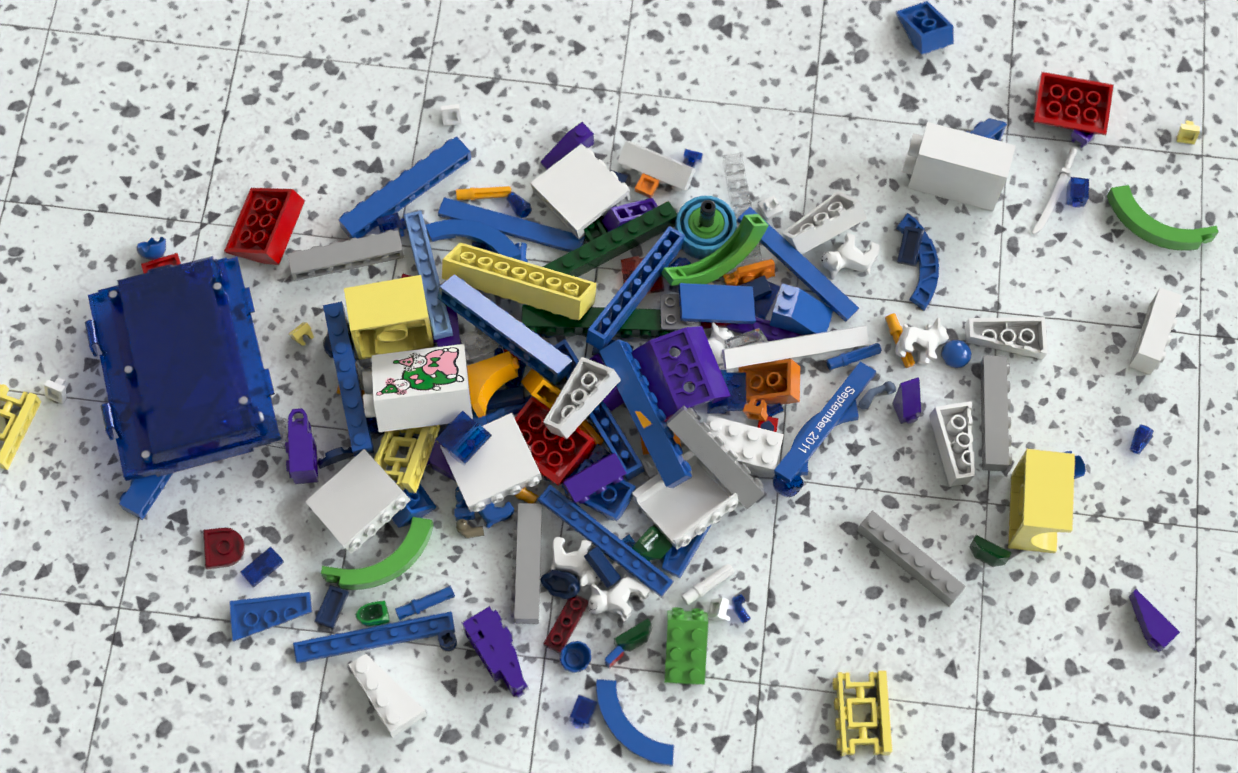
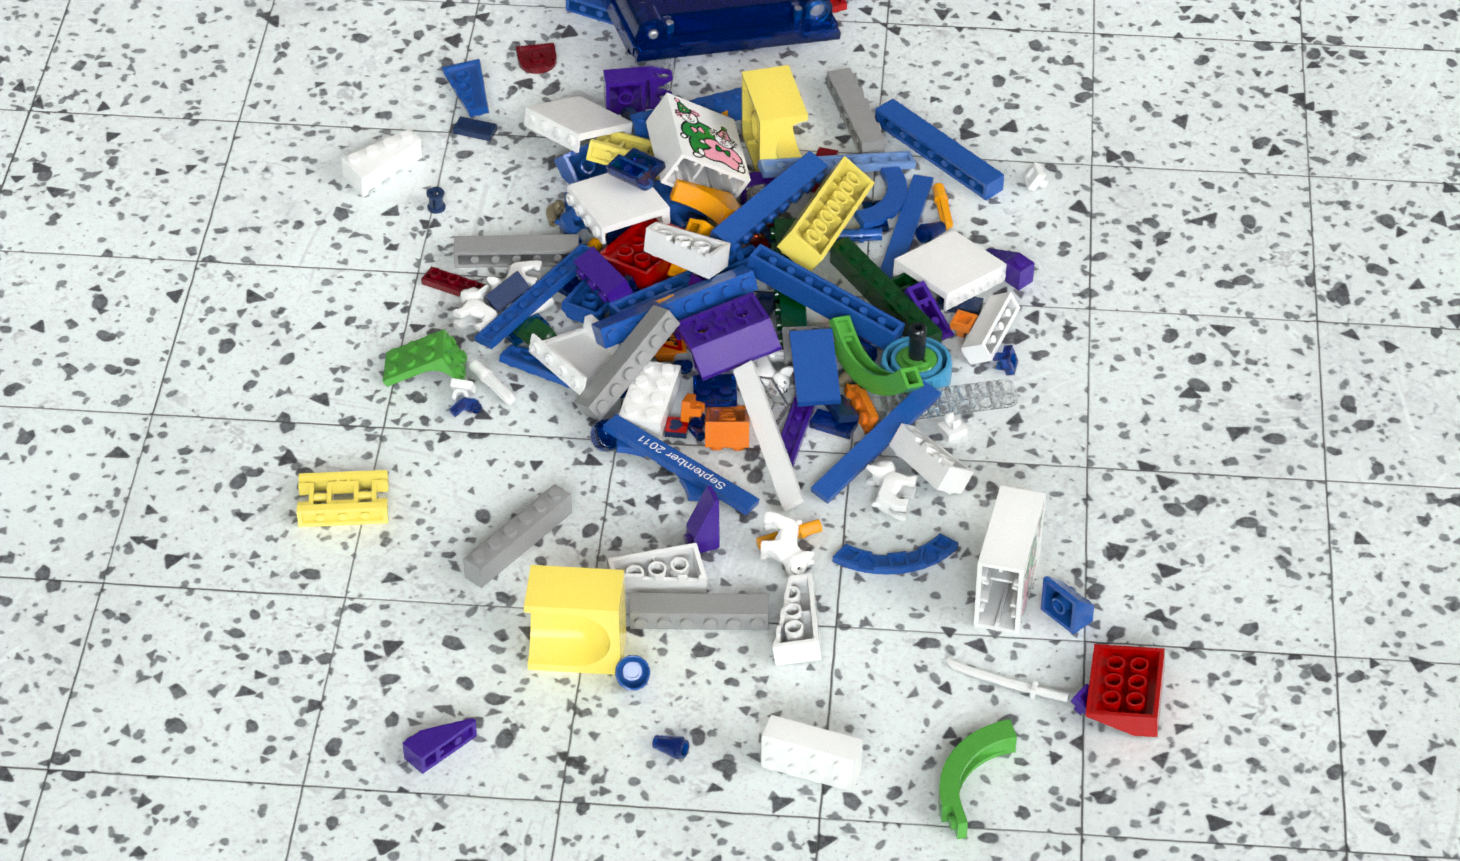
camera: 90 degrees right, 25 degrees down
(262, 567) = (516, 82): clear blue tile -> none
(265, 225) = (884, 60): red slope -> none
(373, 614) = (464, 151): rock -> none
(373, 637) = (443, 158): blue tile -> none
(388, 569) = (520, 165): bright green arch -> none
(391, 222) = (895, 139): clear blue bracket -> none
(423, 603) = (474, 181): blue pin -> none
(495, 649) = (419, 225): dark purple piece -> none
(561, 584) = (497, 271): dark blue arm -> none
(575, 656) = (414, 285): blue hair -> none
(583, 712) = (357, 293): clear blue brick -> none
(614, 656) = (414, 313): blue tile -> none
(623, 729) = (339, 325): blue tile -> none
(635, 636) = (434, 322): dark green slope -> none
(800, 312) = (815, 444): blue slope -> none
(847, 358) = (762, 488): blue axle -> none
(865, 402) = (728, 523): sand blue piece -> none
(910, 246) = (912, 541): dark blue tile -> none
(926, 27) = (1220, 559): blue slope -> none
(956, 353) = (773, 581): blue hair -> none
(989, 552) = (518, 595): dark green slope -> none
(1077, 192) = (1004, 696): clear blue brick -> none
(1188, 133) = (1109, 810): light yellow tile -> none

